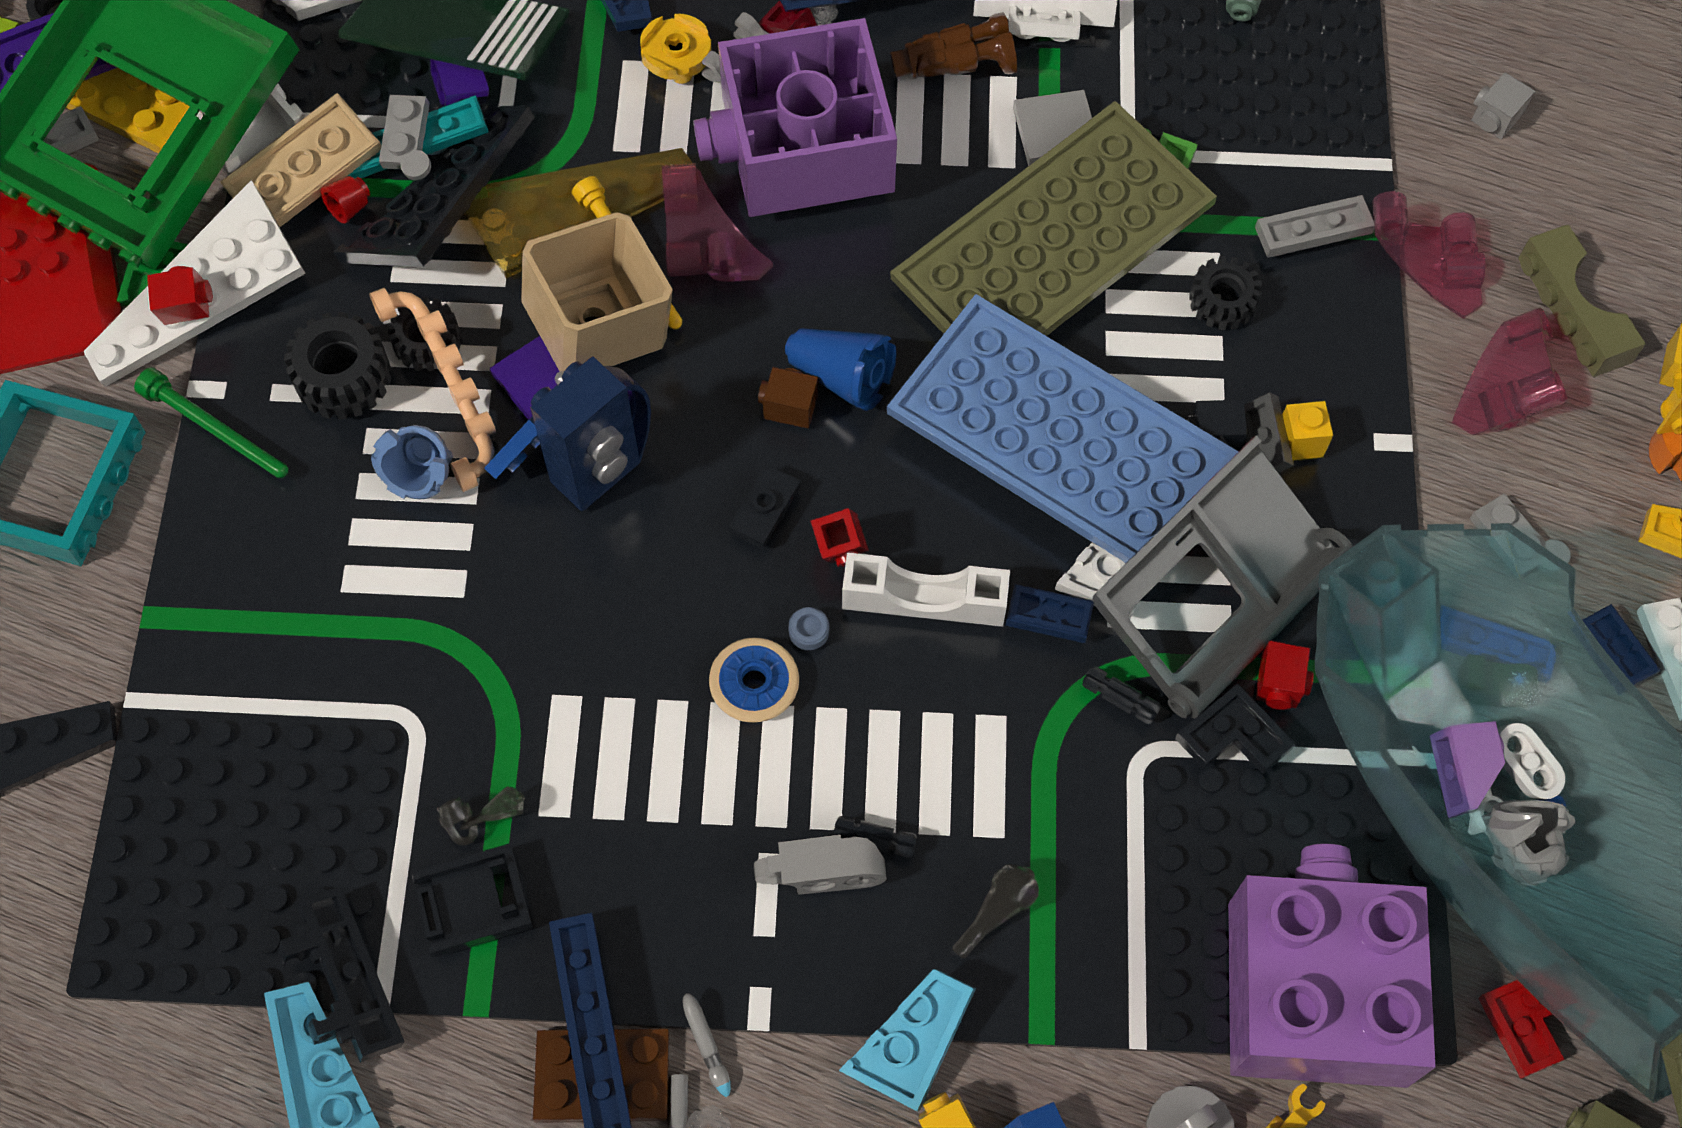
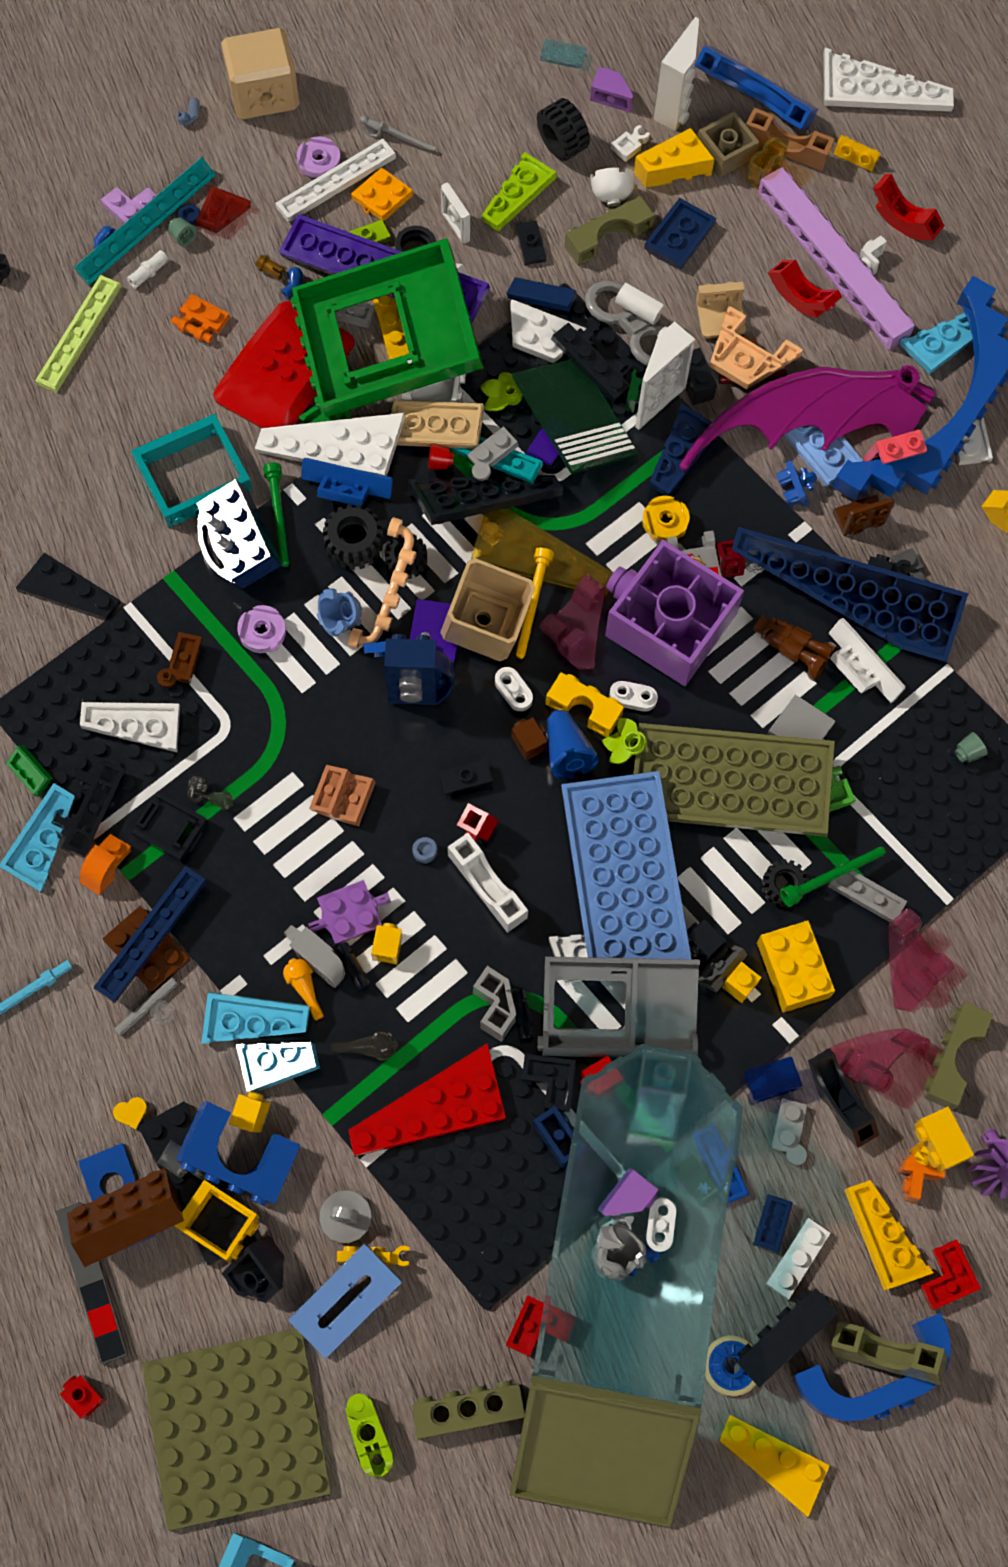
camera: 45 degrees right, 5 degrees up
(179, 295) = (318, 441): red brick -> none
(188, 489) = (236, 535): none -> piece
(209, 1013) = (29, 770): none -> green plate
(258, 318) = (345, 483): none -> blue bracket
(275, 694) = (182, 660): none -> reddish brown hinge
(299, 814) = (139, 722): none -> white wing
(340, 72) = (499, 392): none -> lime plate
(341, 588) = (269, 640): none -> lavender plate
(437, 1027) = (100, 864): none -> orange brick
(644, 660) = (342, 795): none -> nougat slope
(712, 361) = (514, 690): none -> white plate
(717, 1072) = (196, 980): light grey piece -> none
(759, 703) = (372, 863): wheel -> none
(803, 781) = (349, 912): none -> medium lavender plate
(816, 1027) = (246, 1017): none -> medium azure wing
(828, 909) = (298, 974): none -> light orange piece
(836, 294) = (569, 692): none -> yellow arch
(851, 254) = (633, 698): none -> white plate
(888, 770) = (387, 943): none -> yellow brick
(894, 307) = (622, 742): none -> lime plate
(1049, 613) = (531, 946): dark blue plate -> none
(1075, 696) = (497, 992): none -> light grey brick
(1153, 880) = (447, 1103): none -> red wing
(1254, 289) = (792, 894): none -> green piece
(1318, 783) = (555, 1133): none -> dark blue brick
(1330, 976) = (462, 1213): medium lavender brick -> none
(1336, 362) = (795, 966): none -> yellow brick
(1448, 494) = (772, 1080): none -> clear blue panel
(1516, 449) = (836, 1092): none -> black arch

